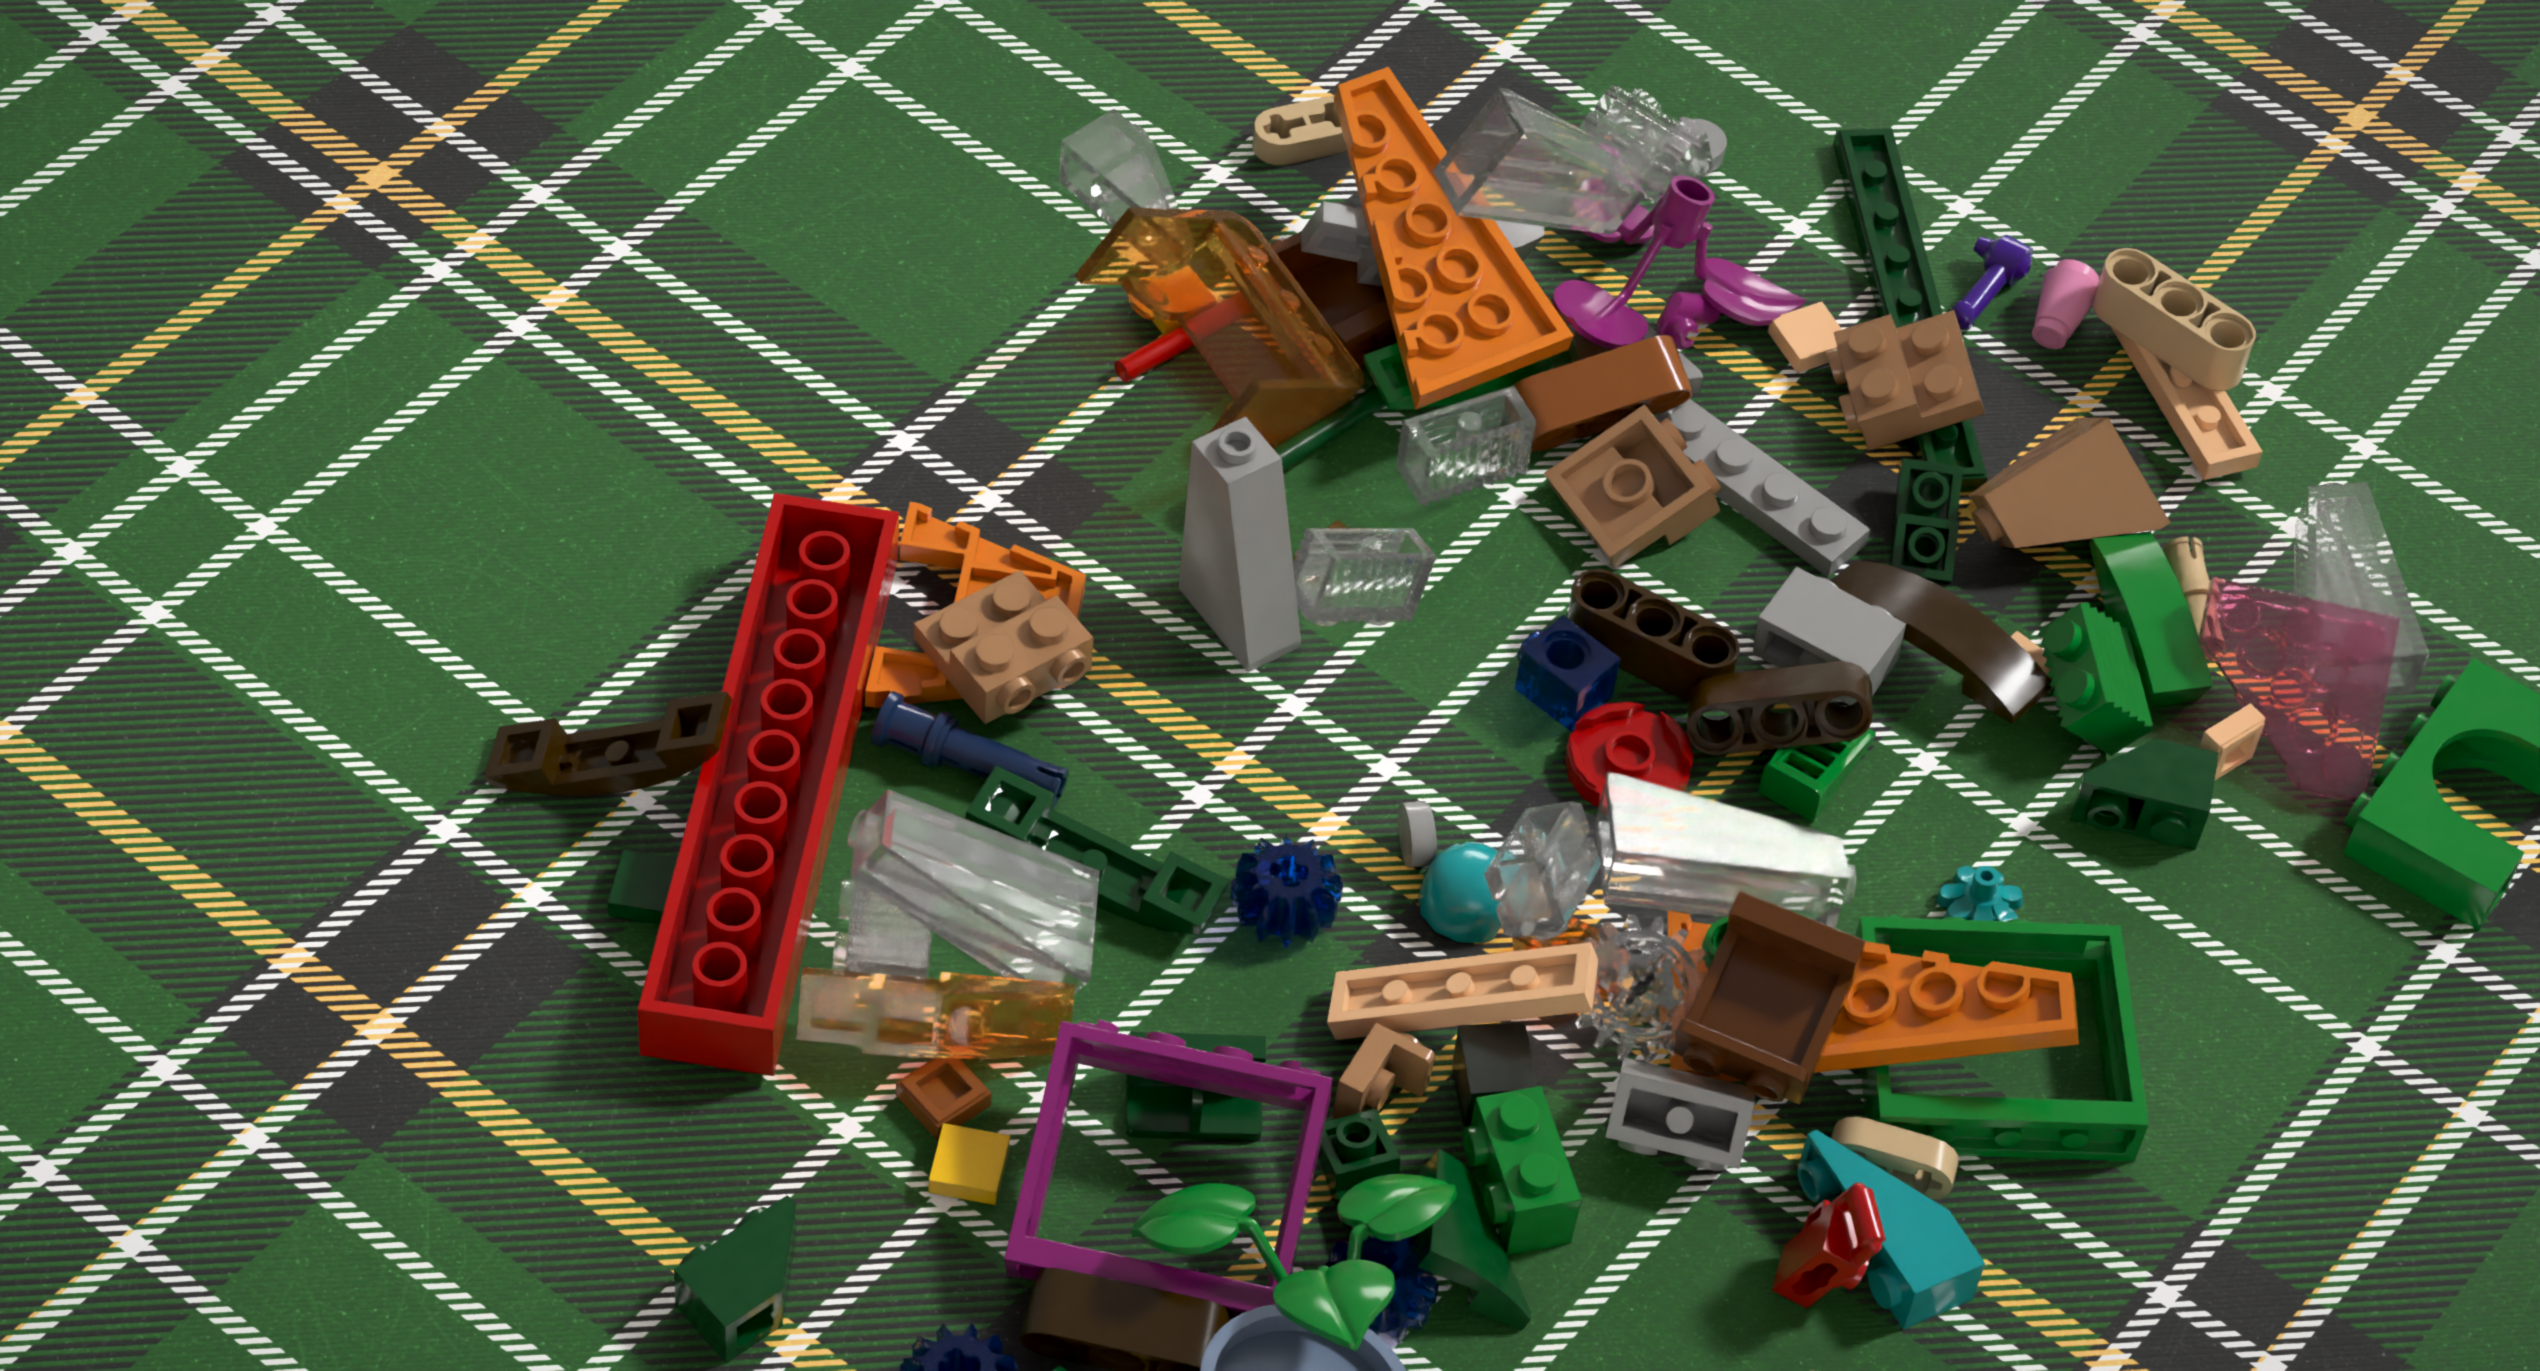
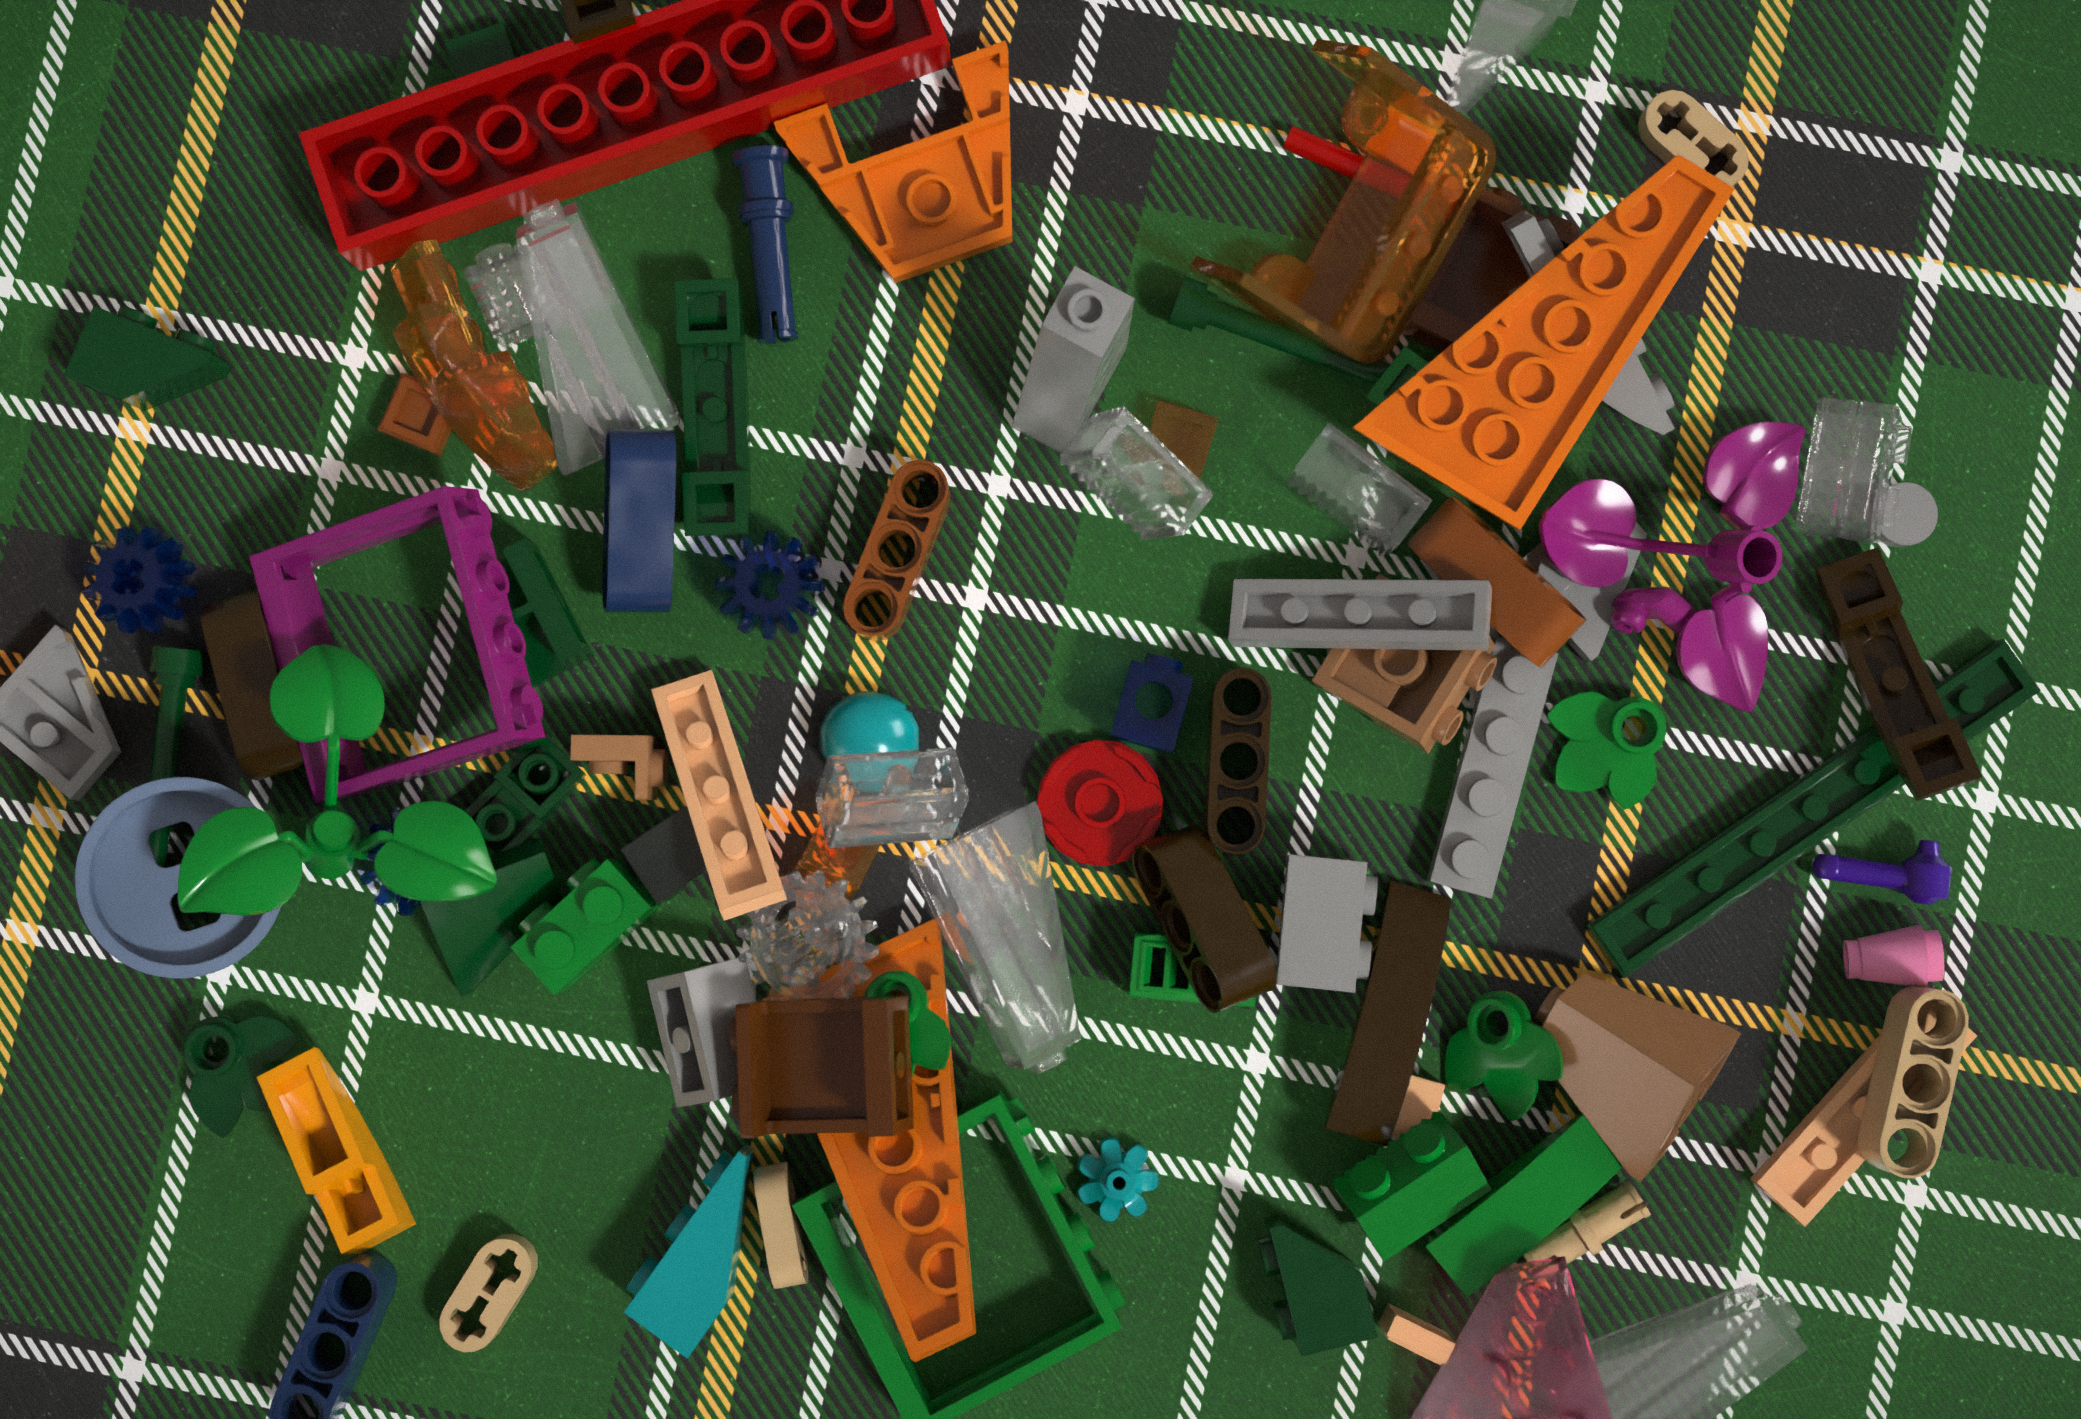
camera: 70 degrees right, 35 degrees up
(969, 1164) = (362, 472): yellow tile -> none
(1006, 646) = (876, 212): medium nougat plate -> none
(1169, 942) = (638, 520): none -> dark blue beam
(1315, 784) = (894, 520): none -> dark orange beam
(1417, 833) = (894, 665): light grey tile -> none
(1536, 170) = (1688, 400): clear slope -> none
(1574, 486) = (1361, 614): none -> light grey plate
(1780, 401) = (1599, 750): none -> green plate
(1805, 336) = (1711, 734): light nougat tile -> none
(1829, 205) = (1893, 677): none -> dark brown slope
(1831, 1247) = (631, 1220): red piece -> none
(1904, 377) = (1693, 851): medium nougat plate -> none
(1926, 519) = (1534, 944): dark green slope -> none
(2021, 575) = (1503, 1062): none -> green plate

